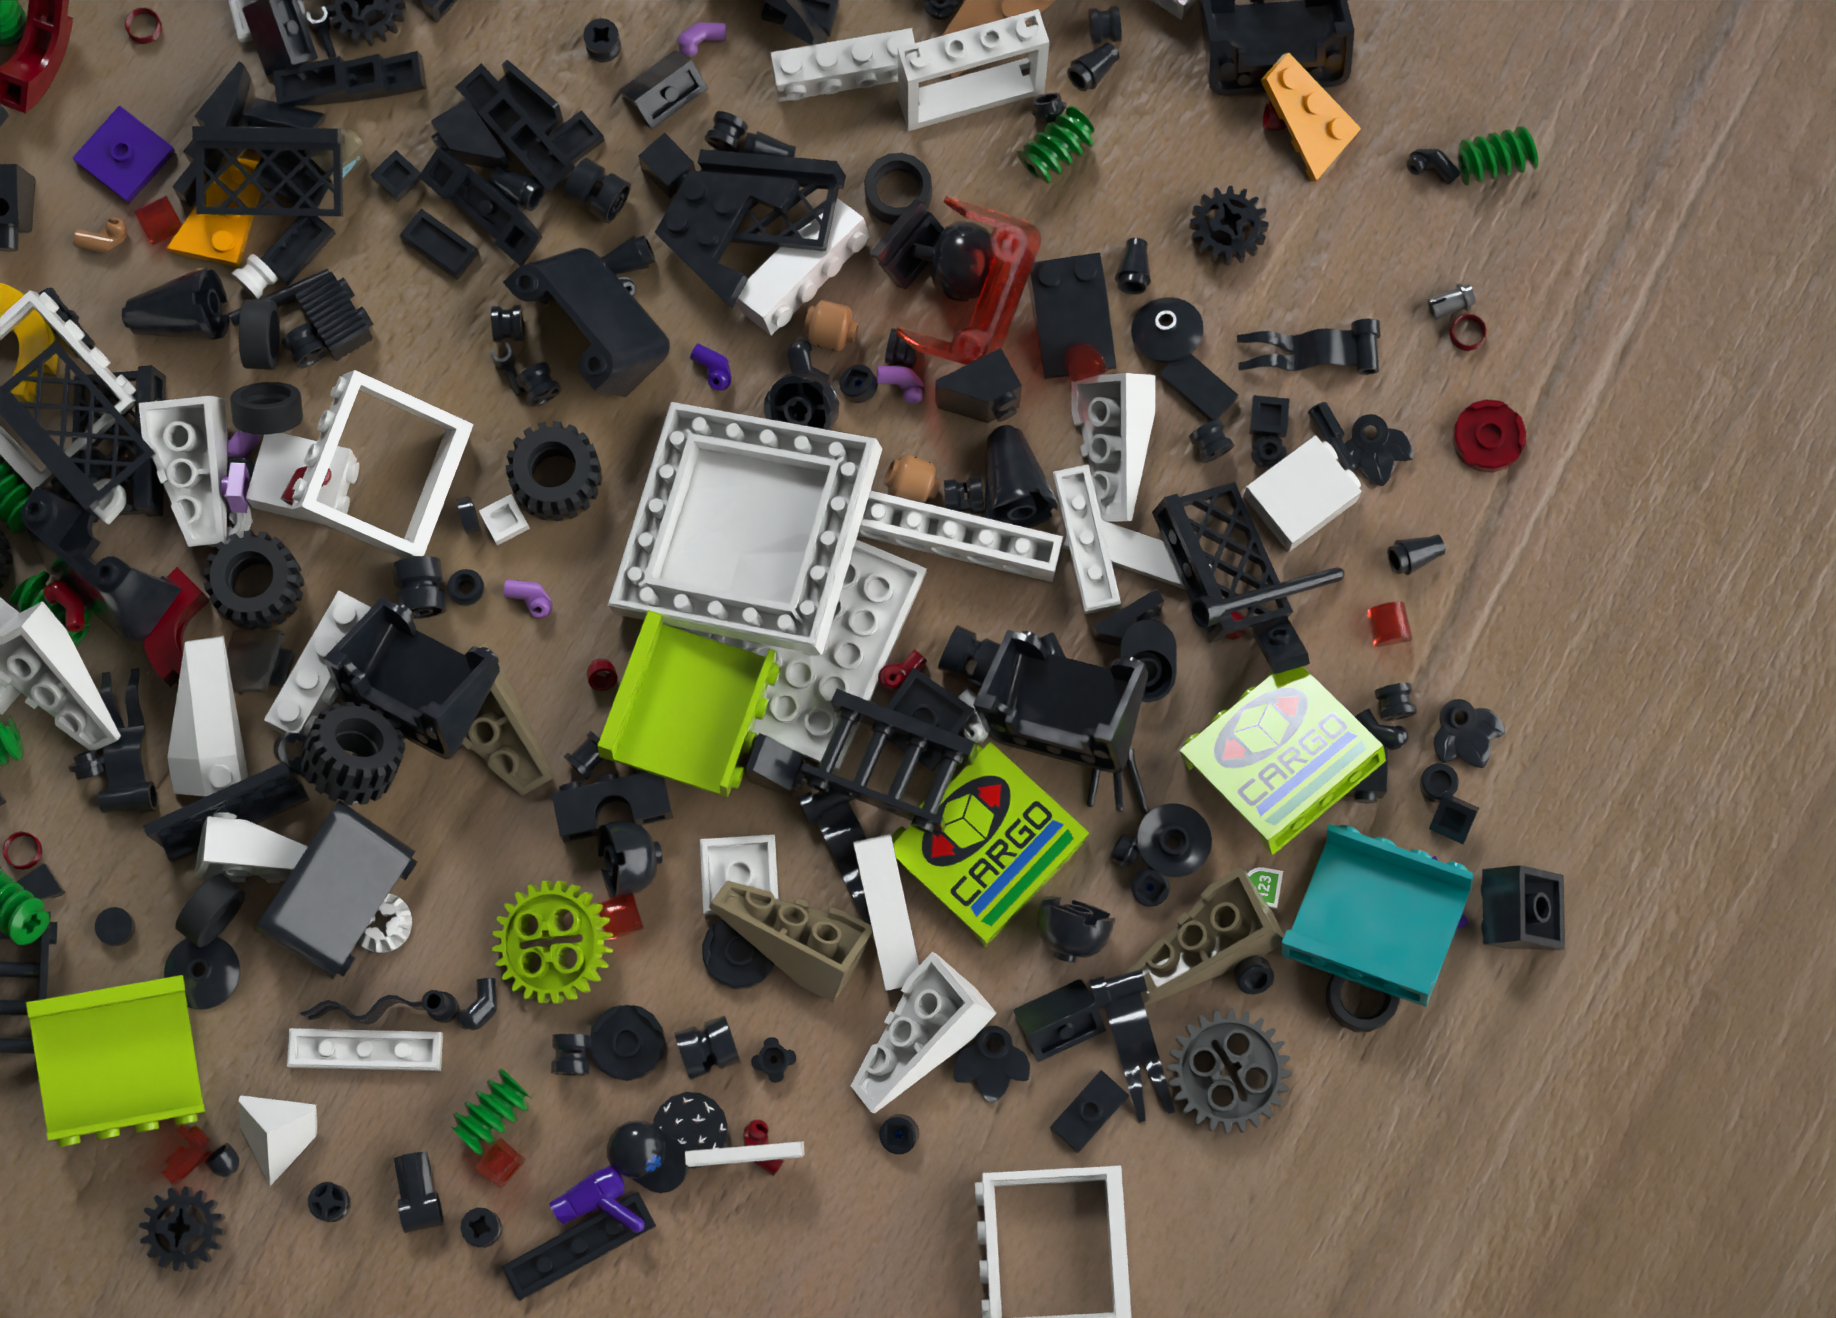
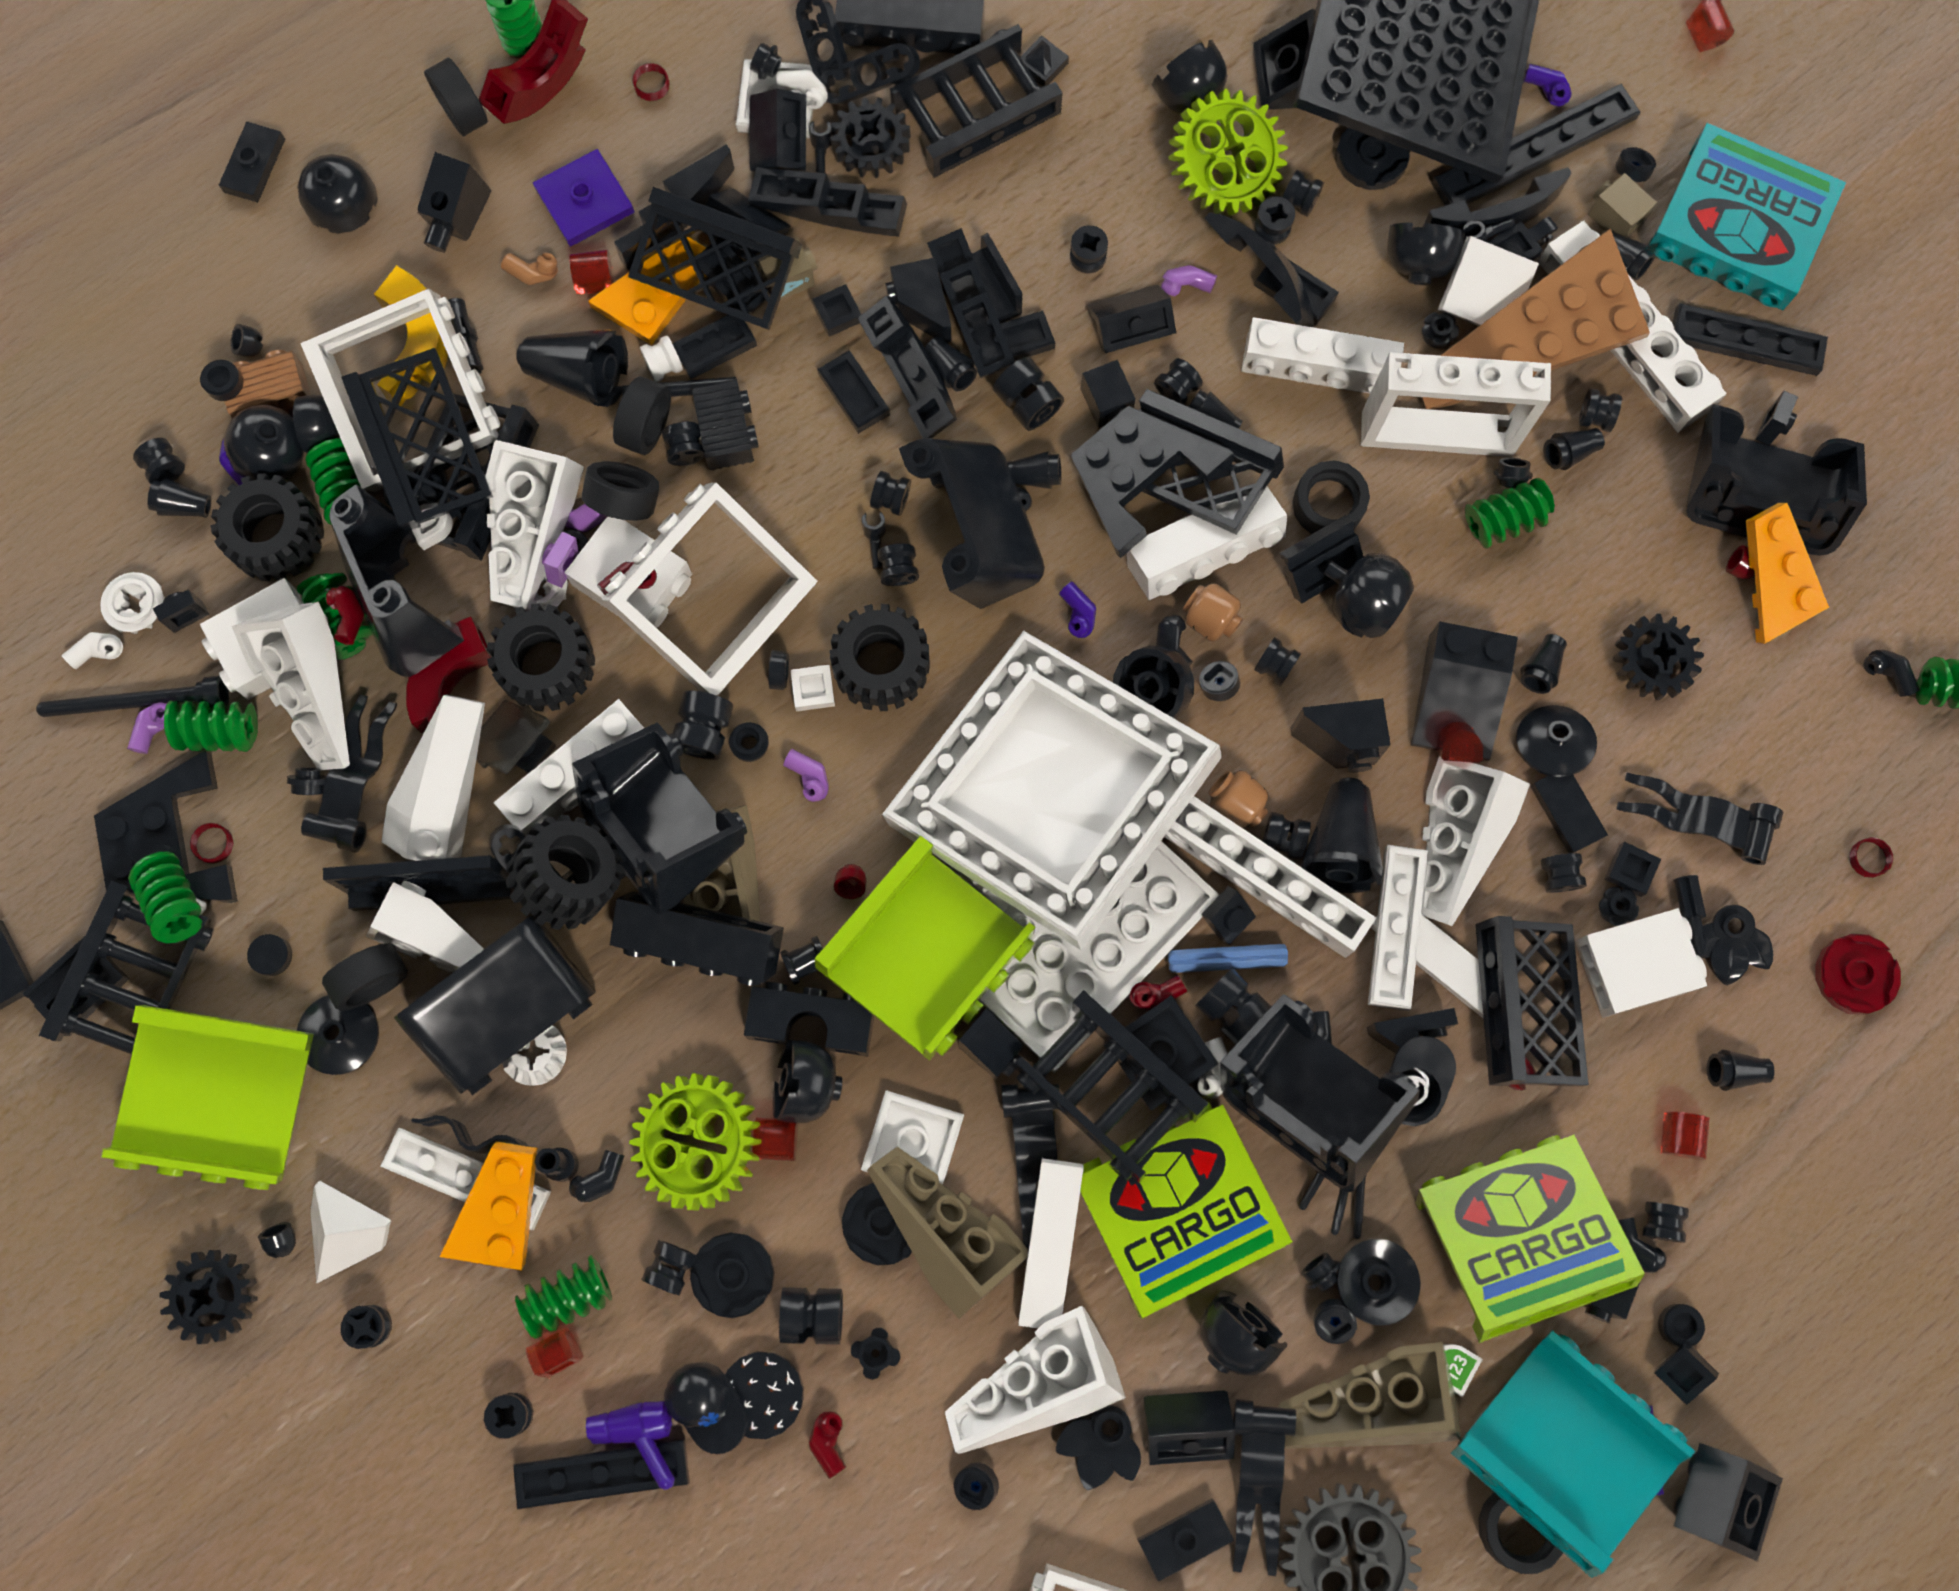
camera: 20 degrees right, 0 degrees up
(184, 1161) = (238, 1224): clear red bracket -> none
(405, 1062) = (497, 1211): none -> light orange wing
(419, 1203) = (456, 1364): black piece -> none
(487, 769) = (697, 938): none -> black brick
(744, 1154) = (806, 1449): white tile -> none
(904, 378) = (1268, 692): medium lavender arm -> none
(939, 582) = (1228, 915): none -> black plate
(949, 619) = (1227, 957): none -> medium blue axle
(1015, 250) = (1433, 602): clear red windscreen -> none
(1211, 609) = (1508, 1056): black piece -> none
(1254, 975) = (1413, 1461): black tile -> none
(1281, 645) = (1565, 1118): black plate -> none
(1452, 301) = (1866, 819): flat silver pin -> none
(1469, 738) = (1730, 1290): black plate -> none

